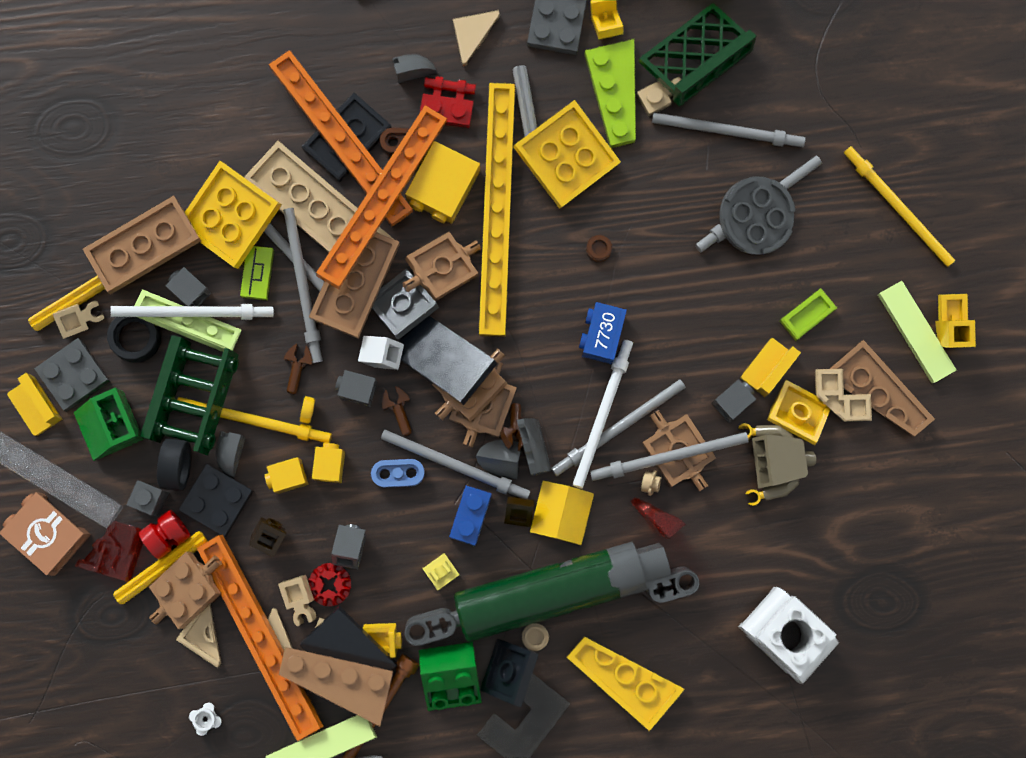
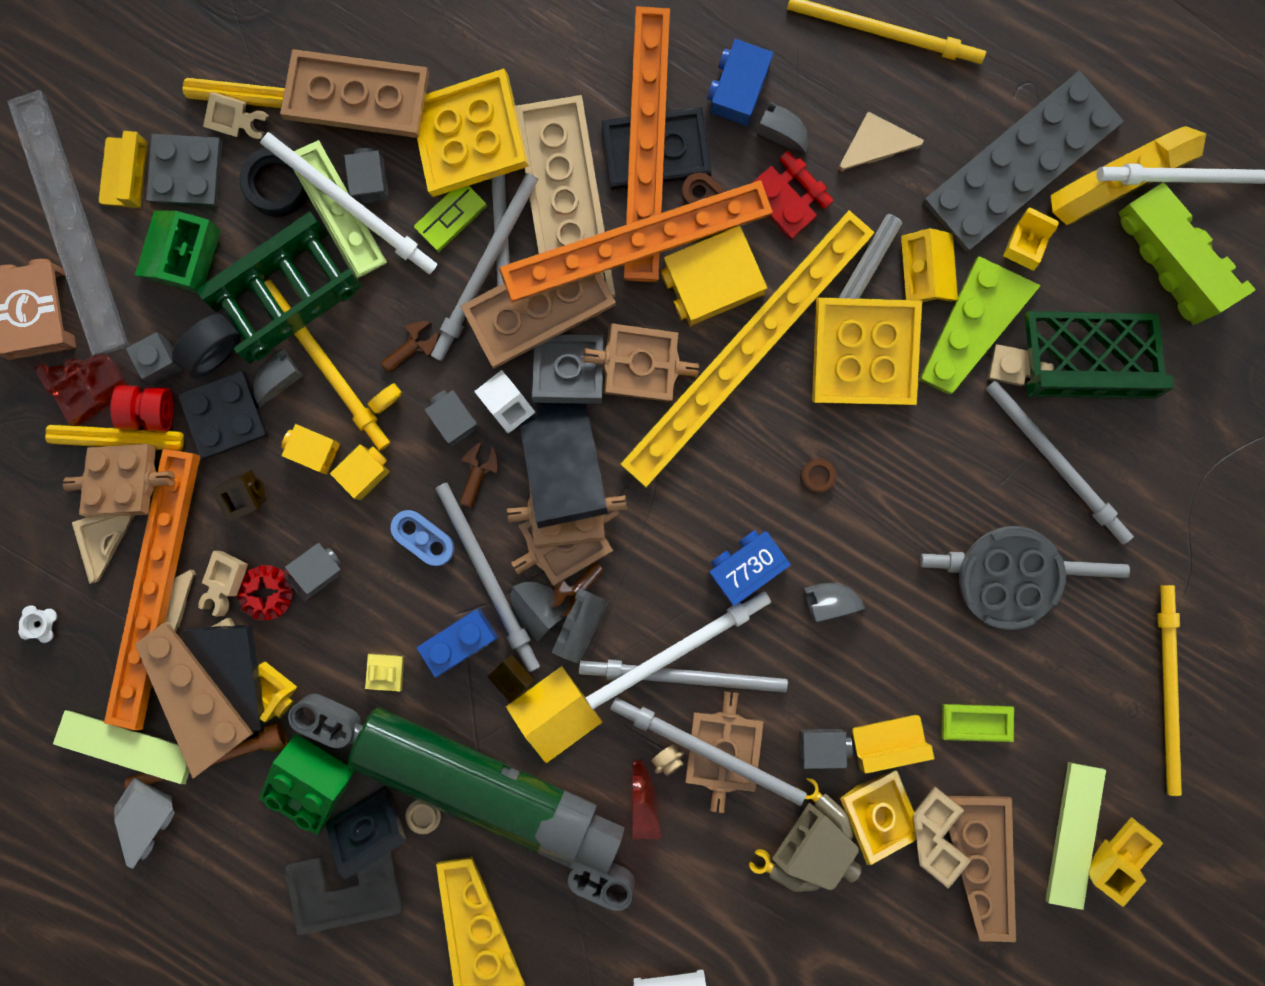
camera: 45 degrees right, 5 degrees up
(365, 60) = (740, 81): none -> blue brick
(561, 78) = (929, 265): none -> yellow panel
(666, 313) = (831, 601): none -> dark grey brick

